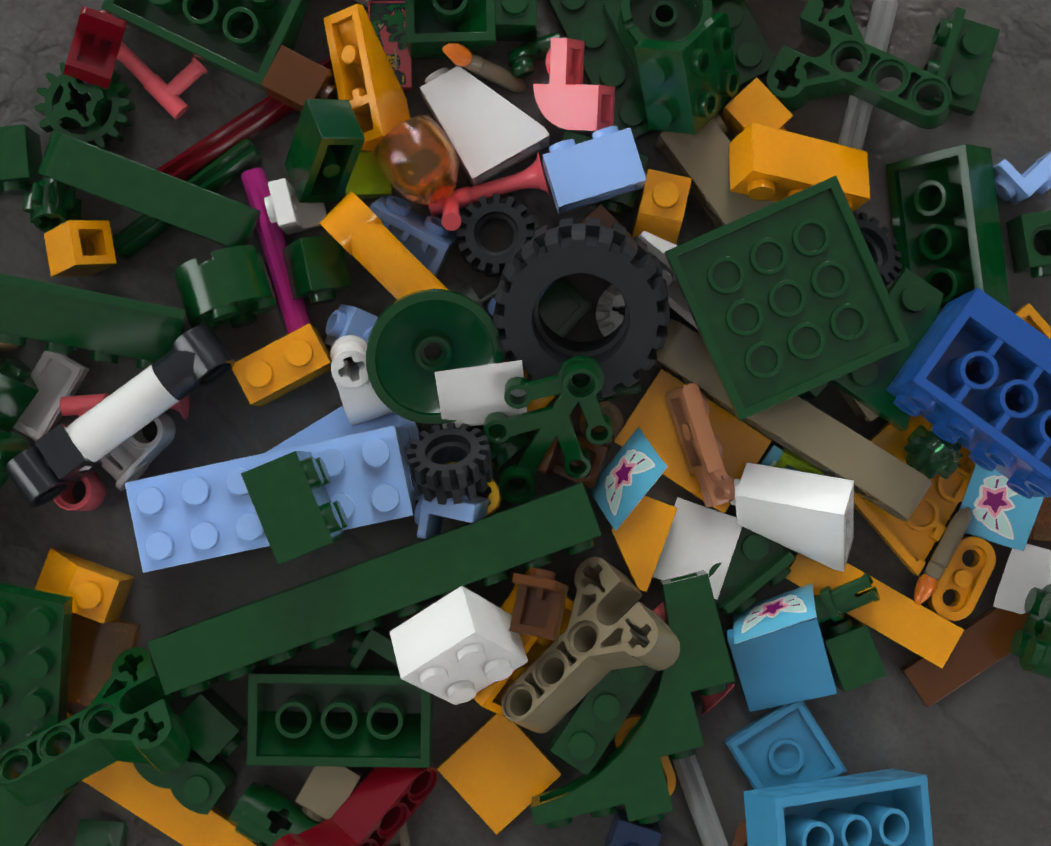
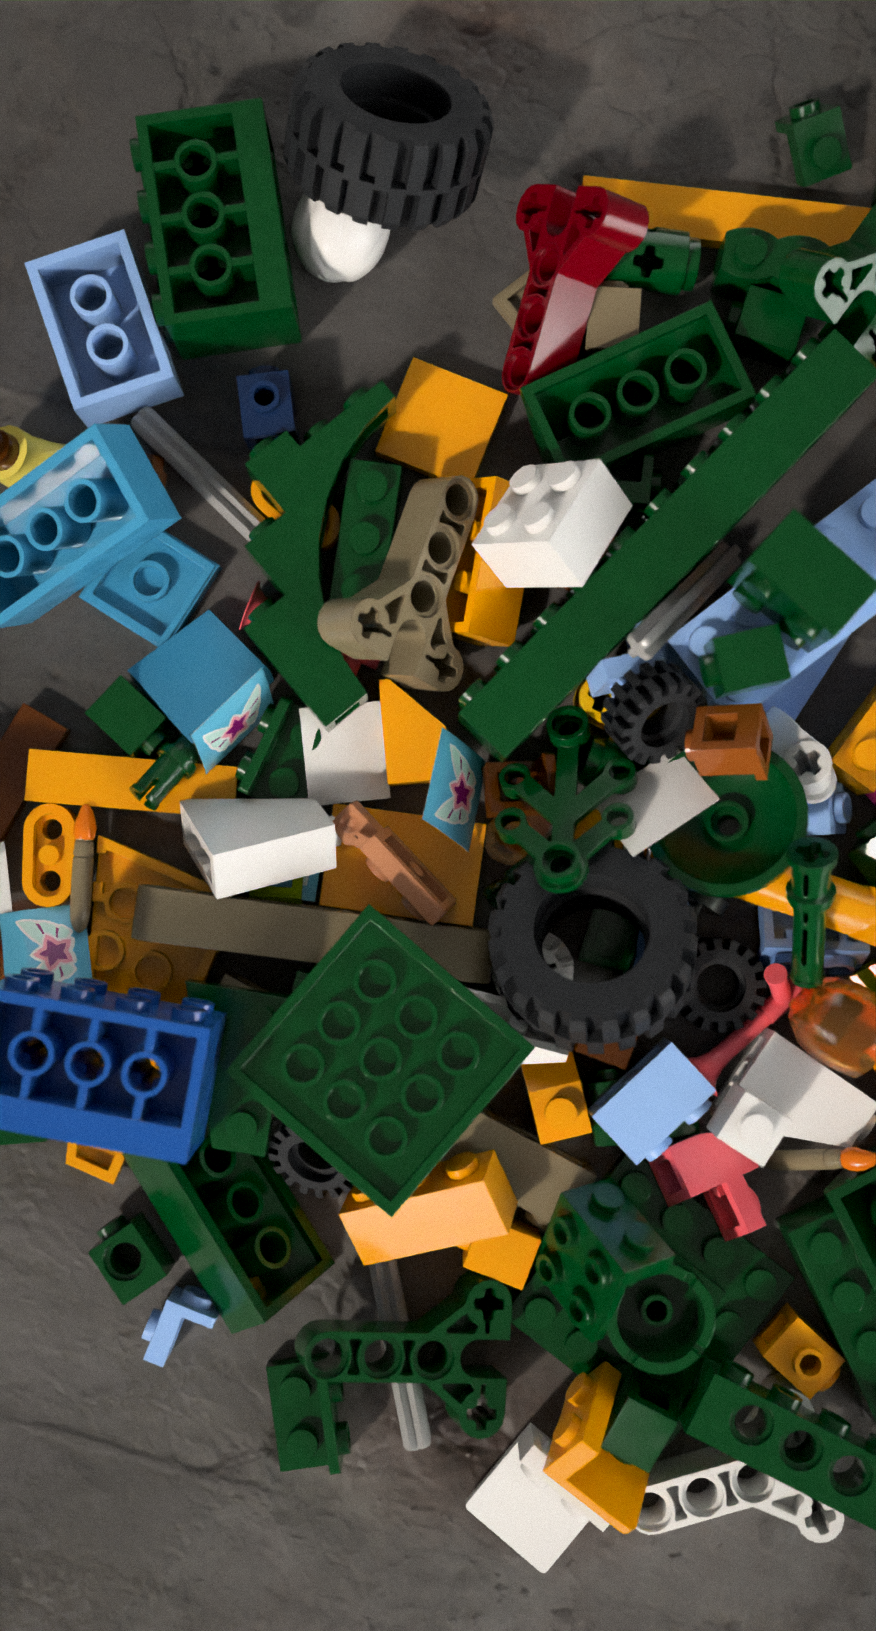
camera: 160 degrees right, 0 degrees up
(365, 468) = (744, 661): none -> dark green brick
(384, 538) = (683, 601): none -> light grey axle
(401, 266) = (811, 896): none -> dark green pin
(403, 412) = (730, 740): none -> dark orange brick
(524, 56) = (781, 1195): dark green arm -> none
(529, 118) = (748, 1124): none -> white brick
(538, 604) = (489, 607): reddish brown bracket -> none
(932, 454) = (146, 967): clear green gear -> none

